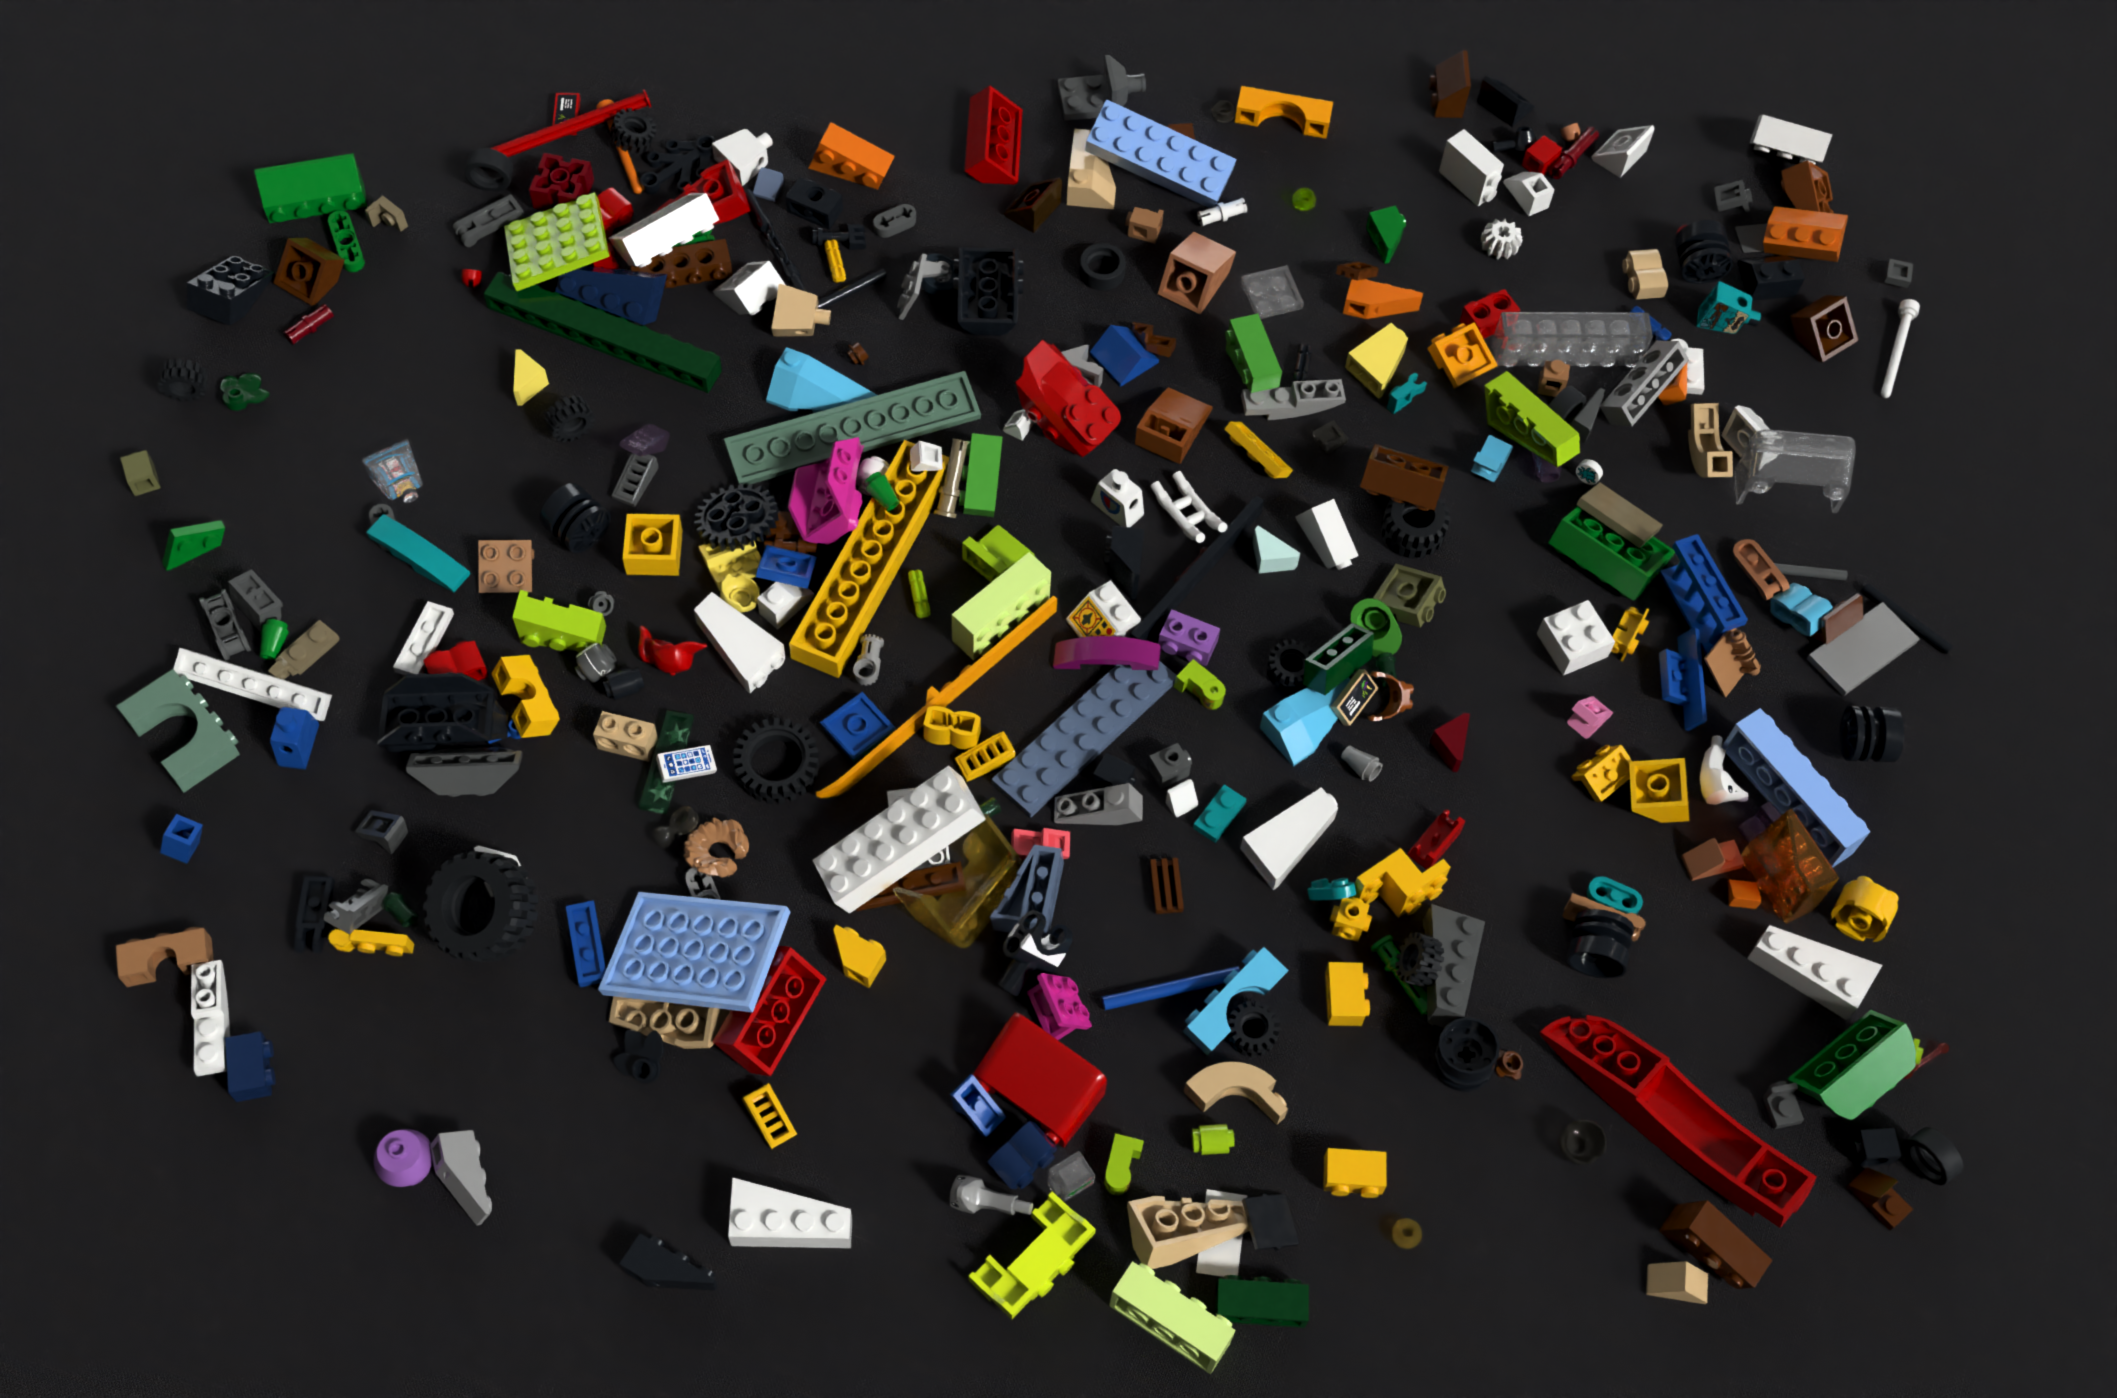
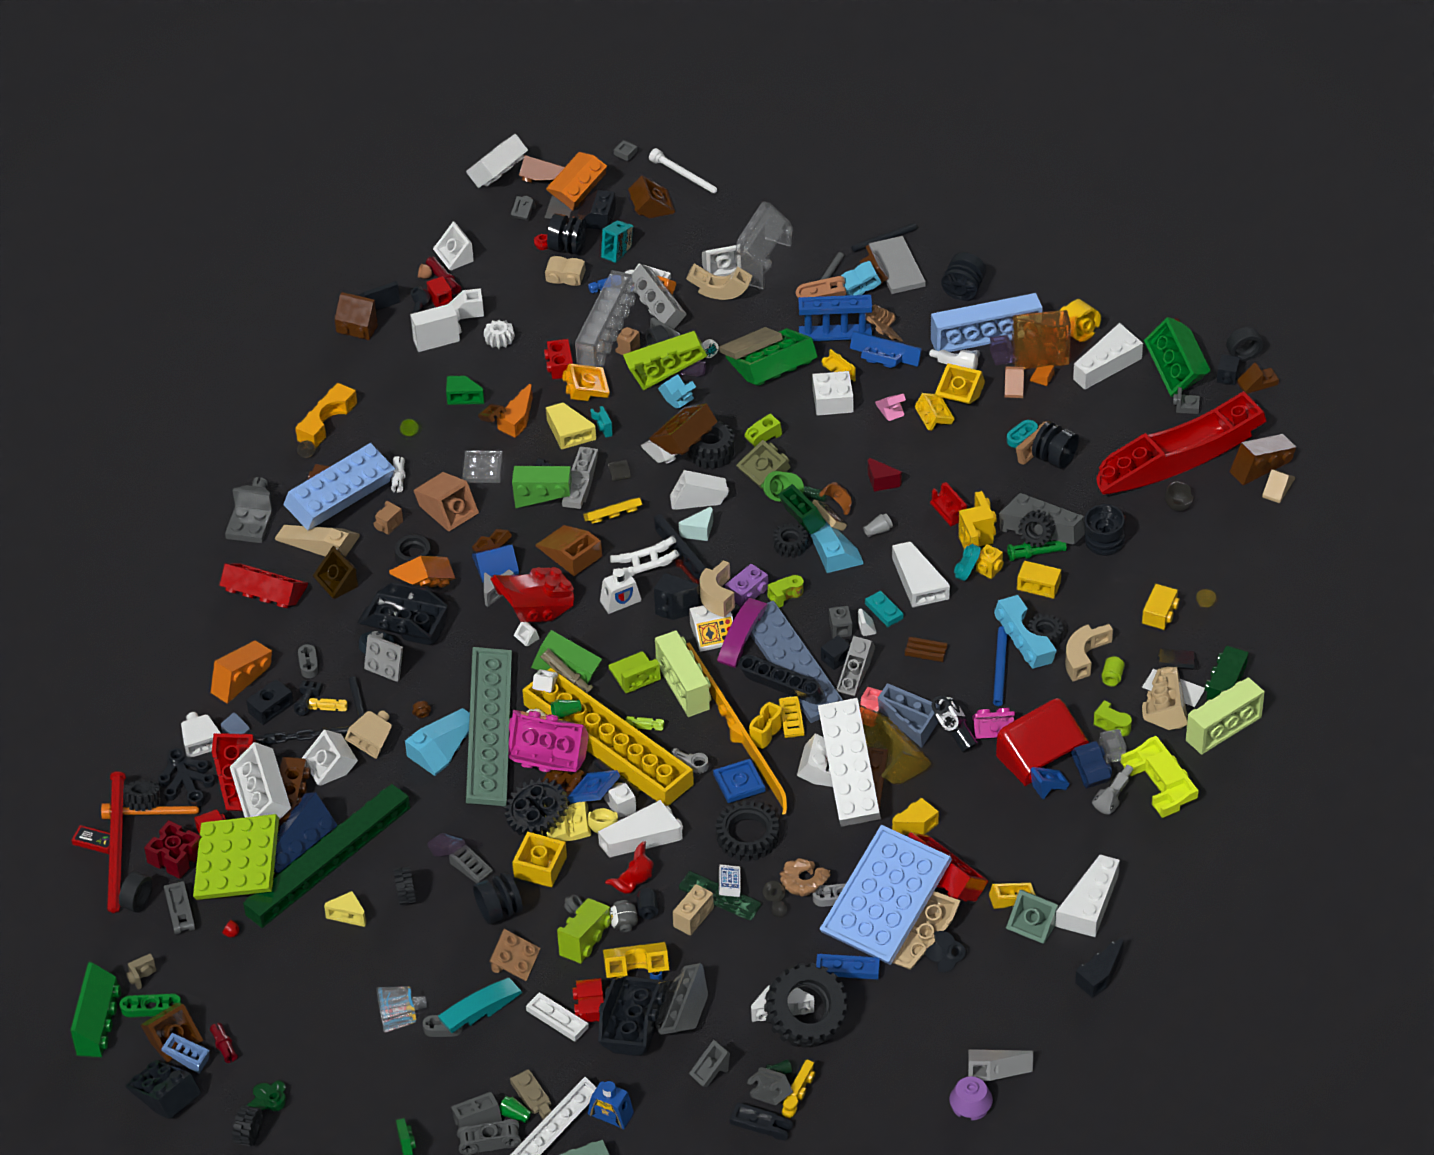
camera: 65 degrees left, 15 degrees down
(278, 308) = (190, 1062): none -> medium blue slope
(727, 1151) = (1033, 916): none -> sand green slope
(1033, 723) = (781, 679): none -> black beam
(1053, 282) = (425, 571): none -> orange slope
(1142, 589) = (712, 595): none -> tan arch
(1470, 576) = (763, 430): none -> lime leg

